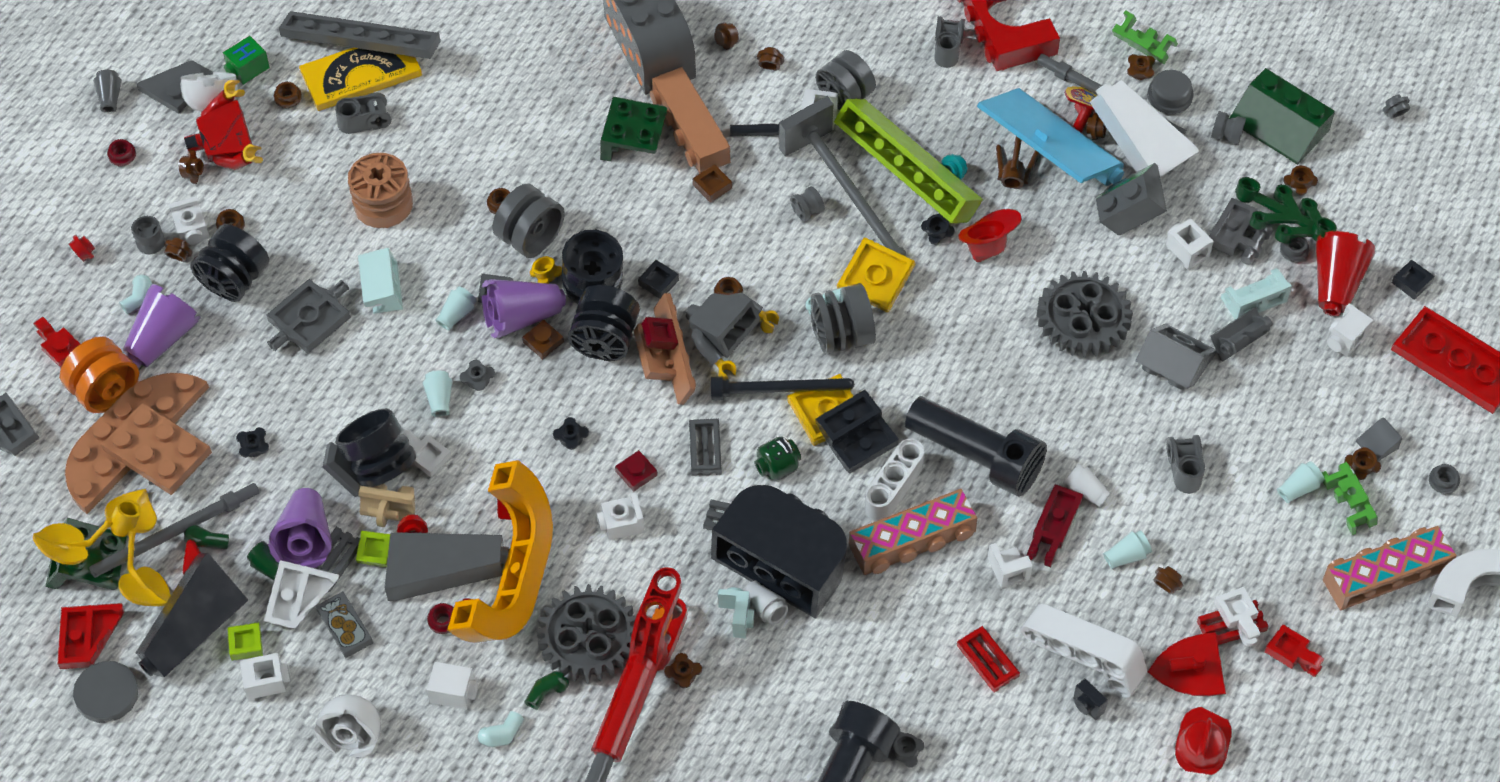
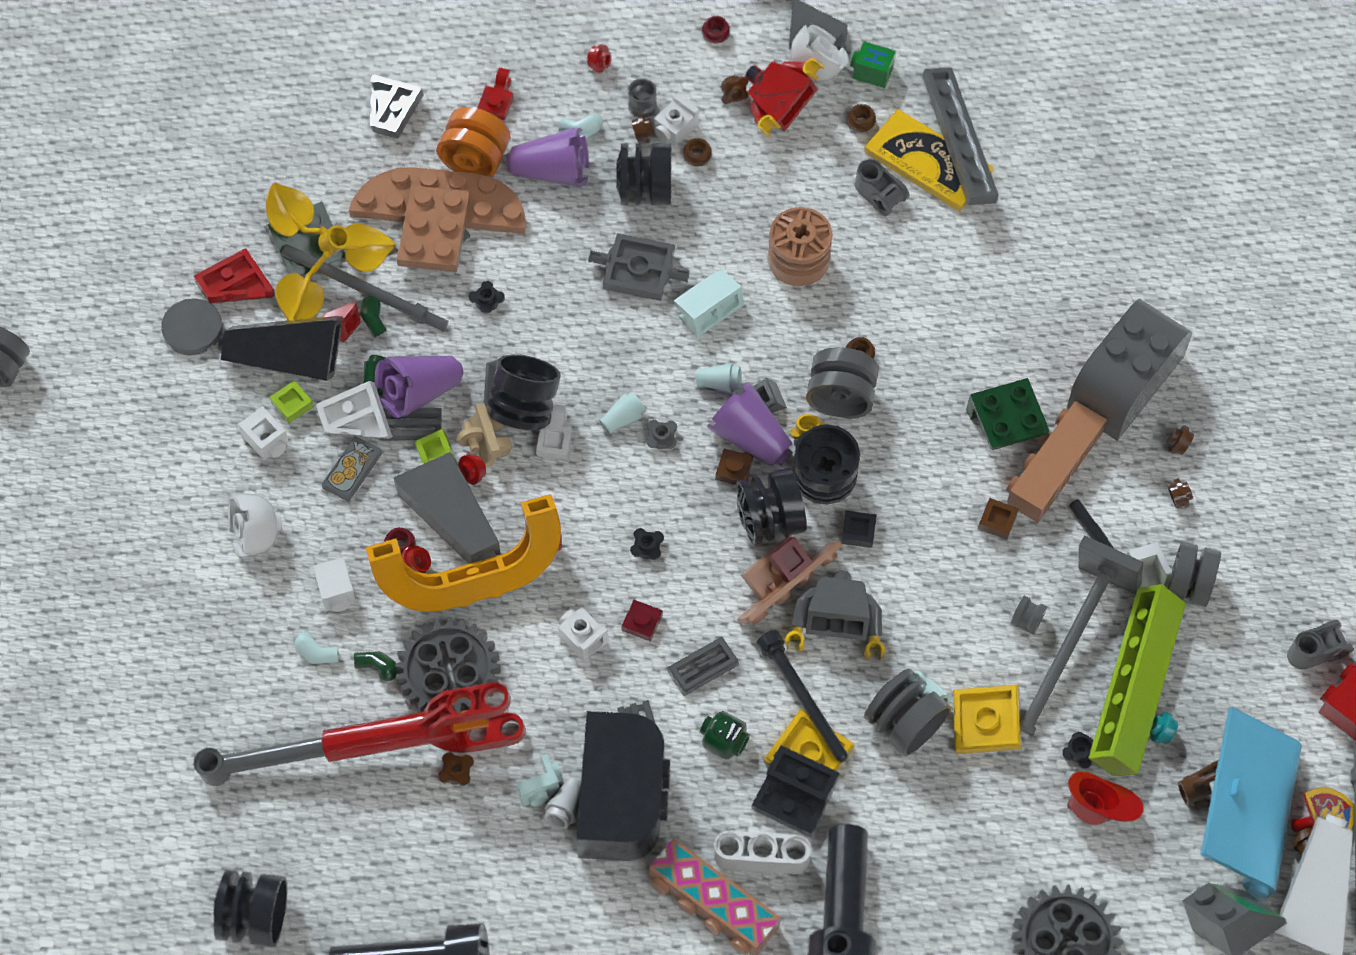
camera: 60 degrees right, 5 degrees up
(728, 283) = (890, 589): reddish brown plate -> none

